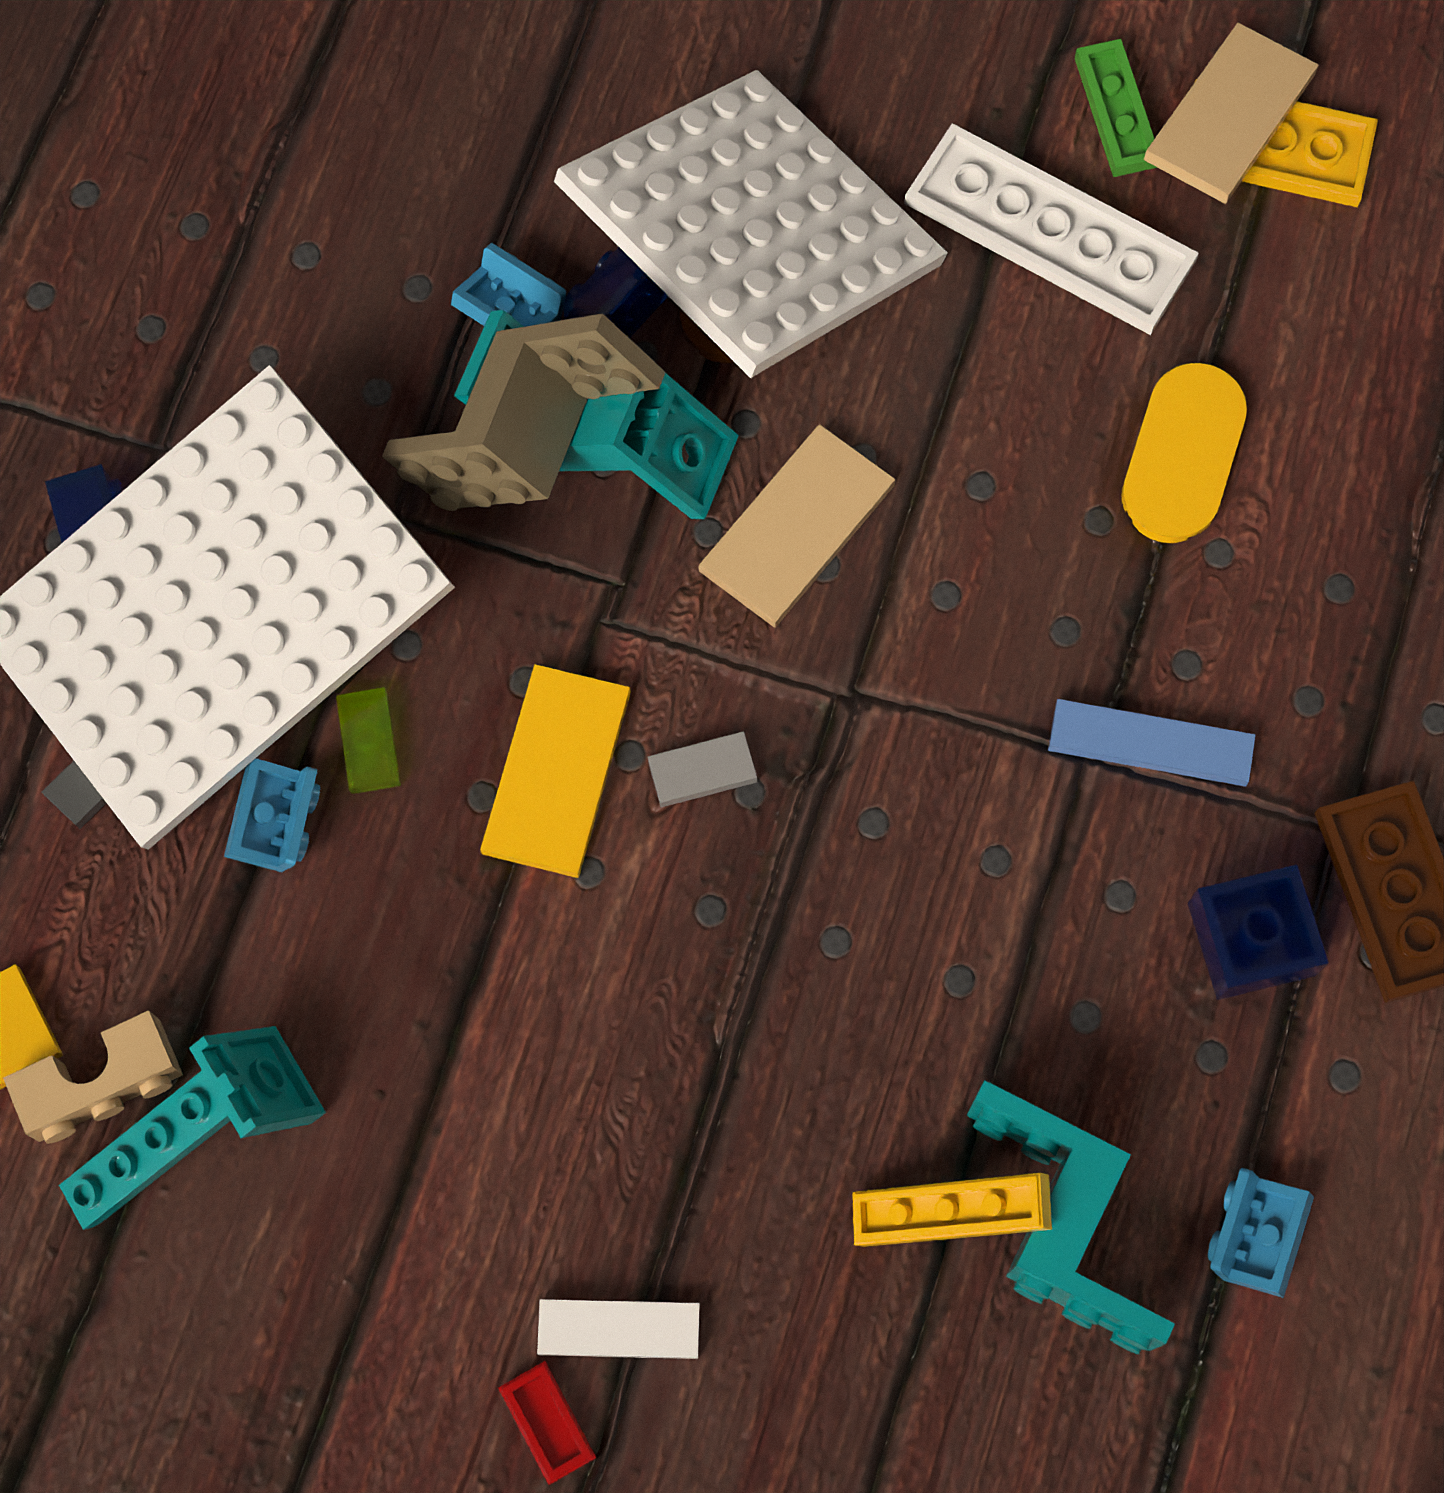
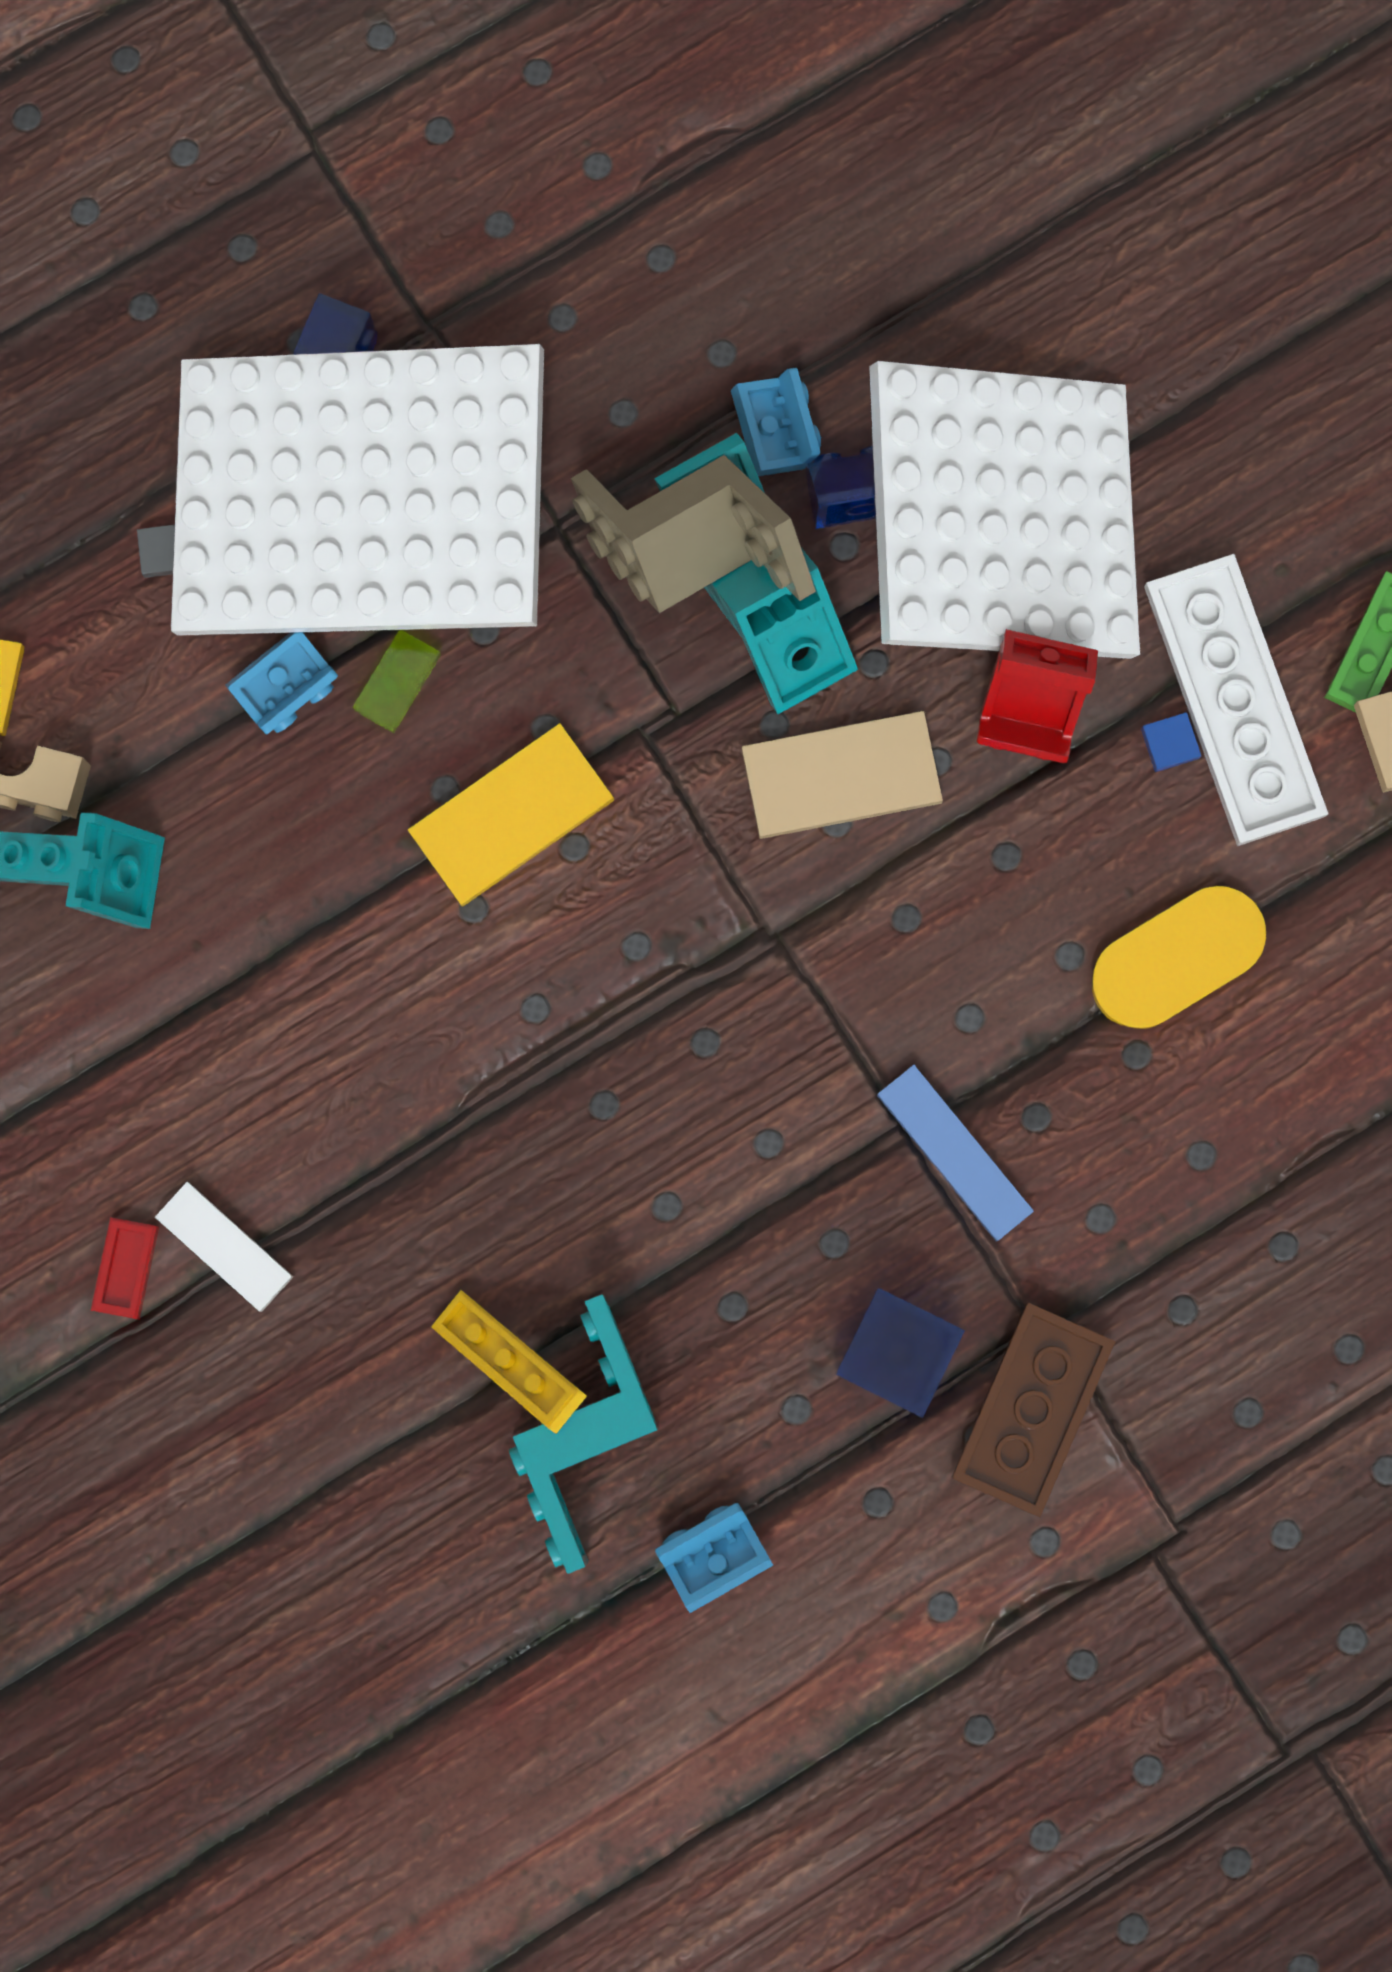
camera: 40 degrees right, 10 degrees up
(702, 769) = (615, 901): light grey tile -> none
(900, 334) = (1036, 696): none -> red panel
(1029, 299) = (1170, 742): none -> blue tile

